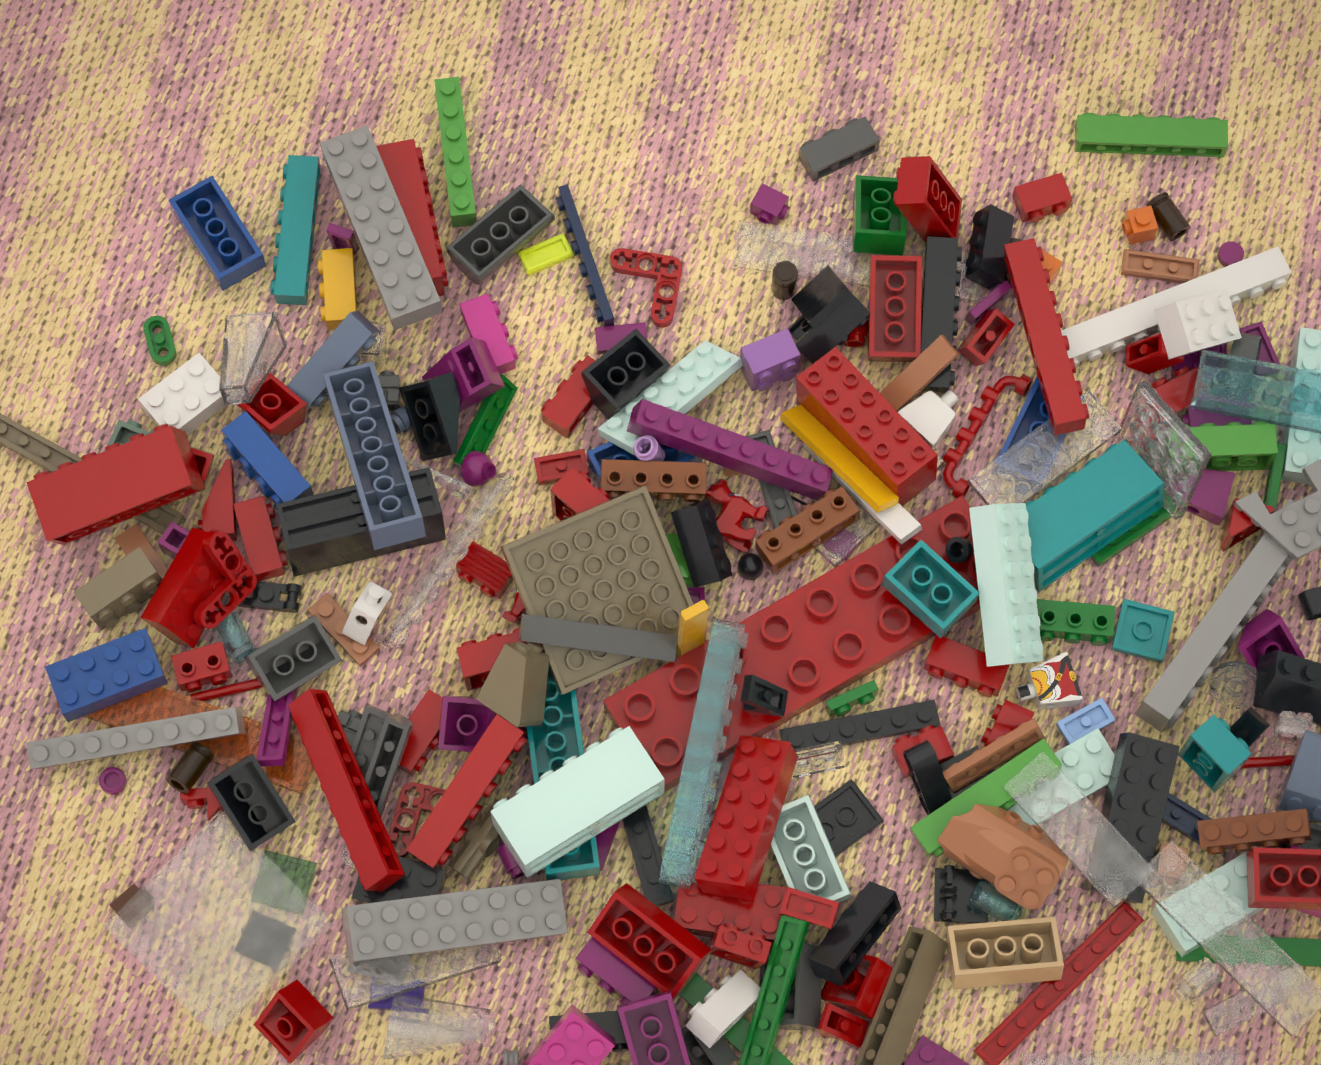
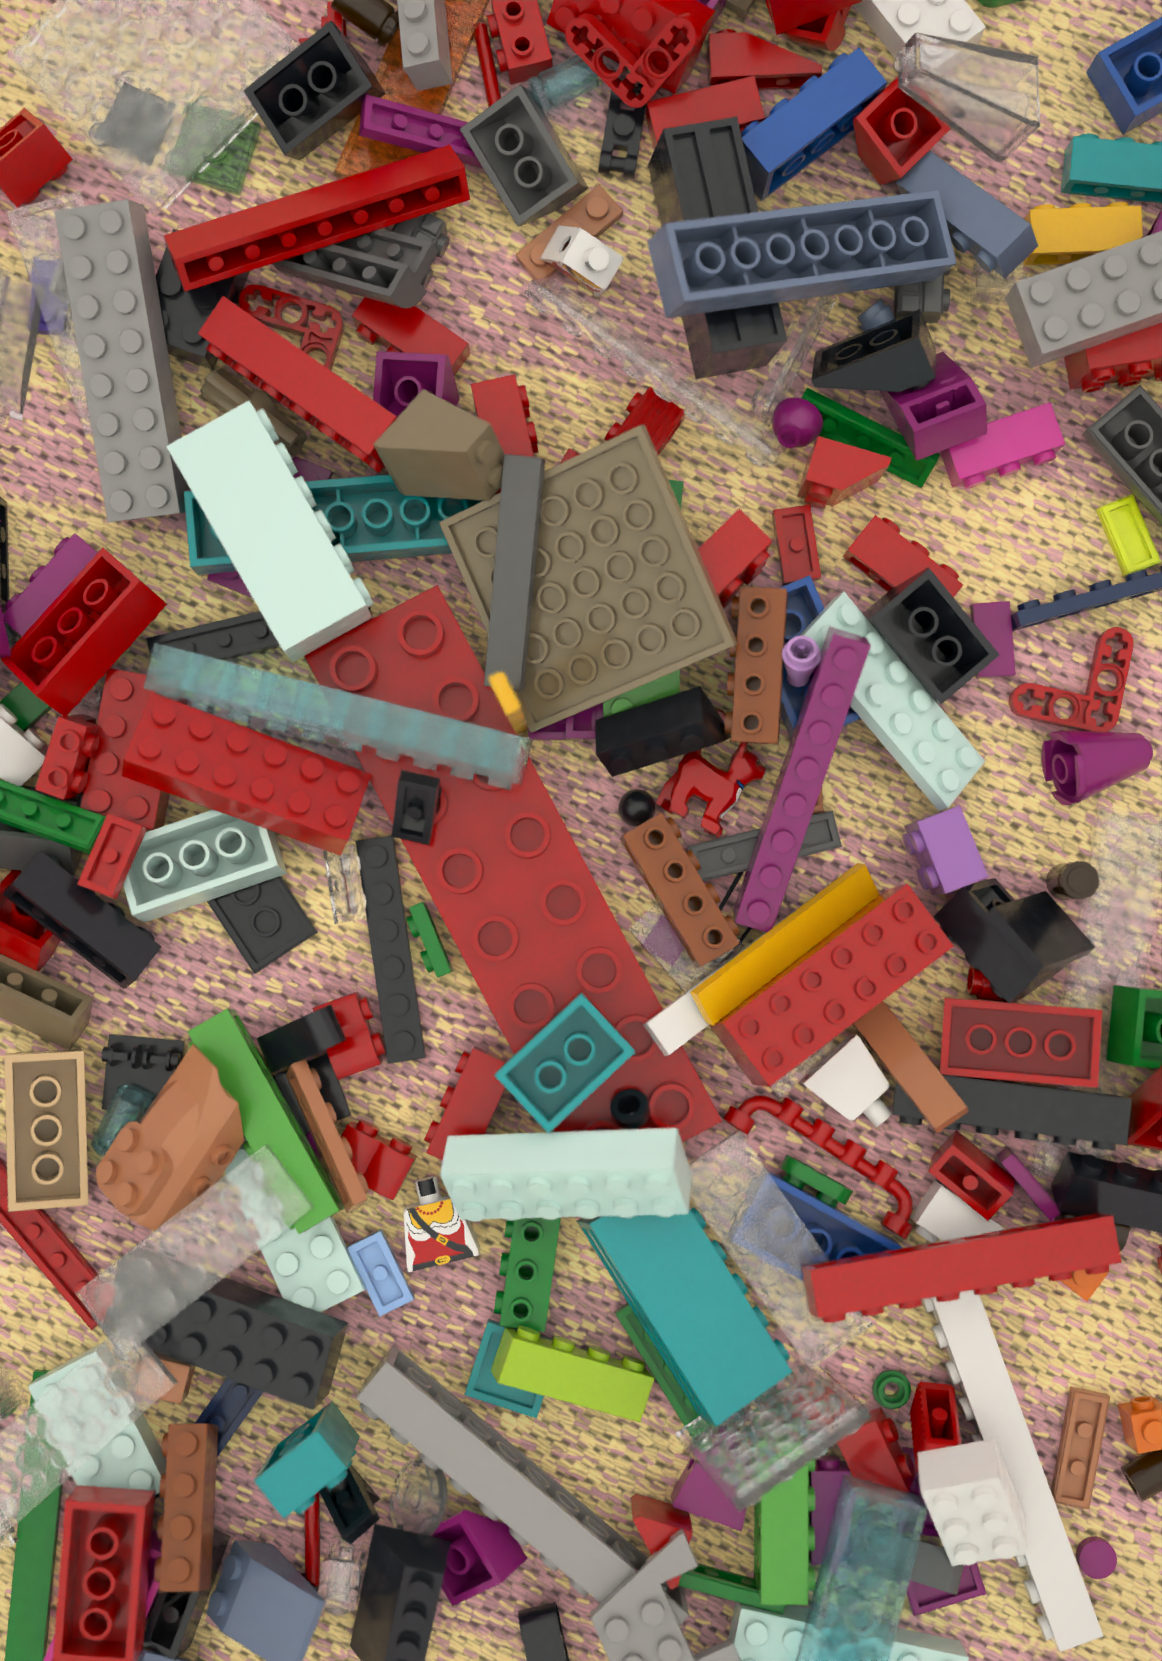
camera: 90 degrees right, 15 degrees up
(513, 440) = (838, 472): none -> red slope
(703, 271) = (1091, 761): none -> magenta cone
(1002, 429) = (829, 1189): none -> green plate
(1014, 352) = (948, 1217): none -> white brick
(1127, 379) = (900, 1397): none -> green plate
(1141, 586) = (571, 1373): none -> lime brick

